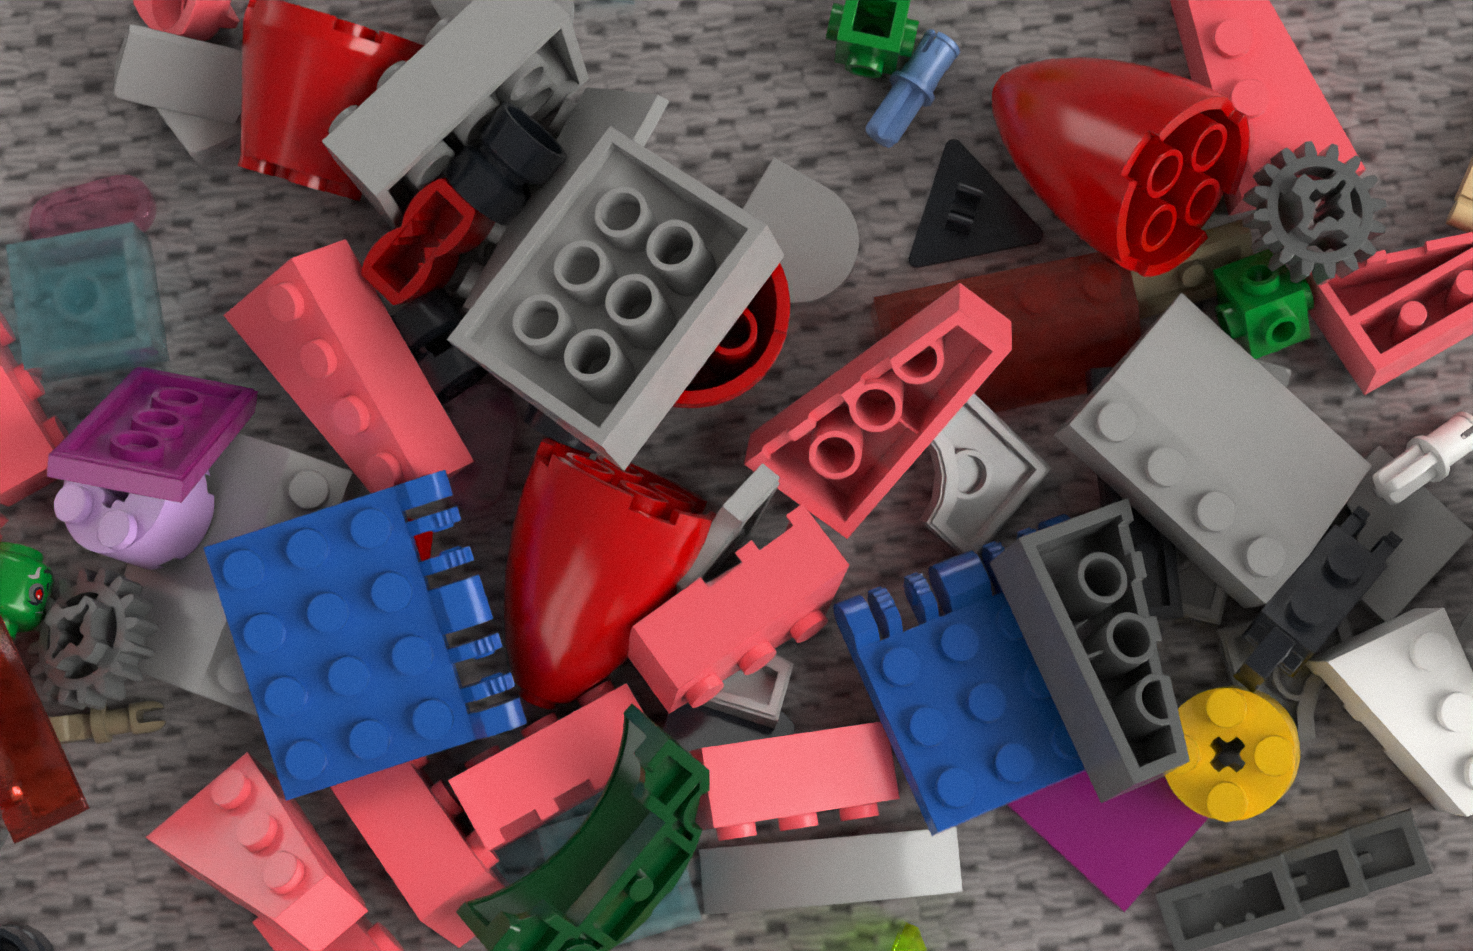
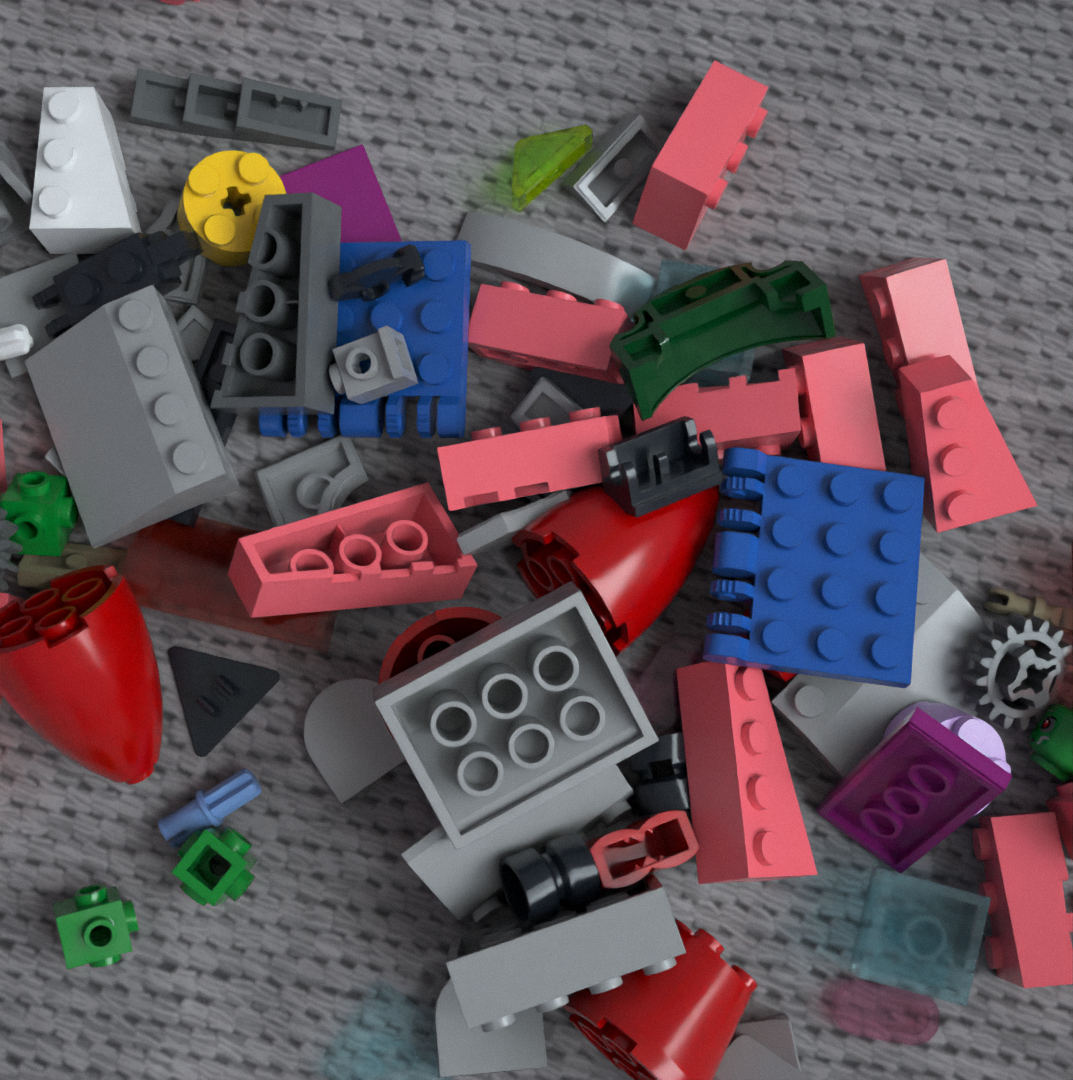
camera: 155 degrees left, 0 degrees up
(588, 661) = (659, 466): none -> black hinge
(955, 645) = (389, 370): none -> light grey brick
(1017, 735) = (374, 278): none -> black piece

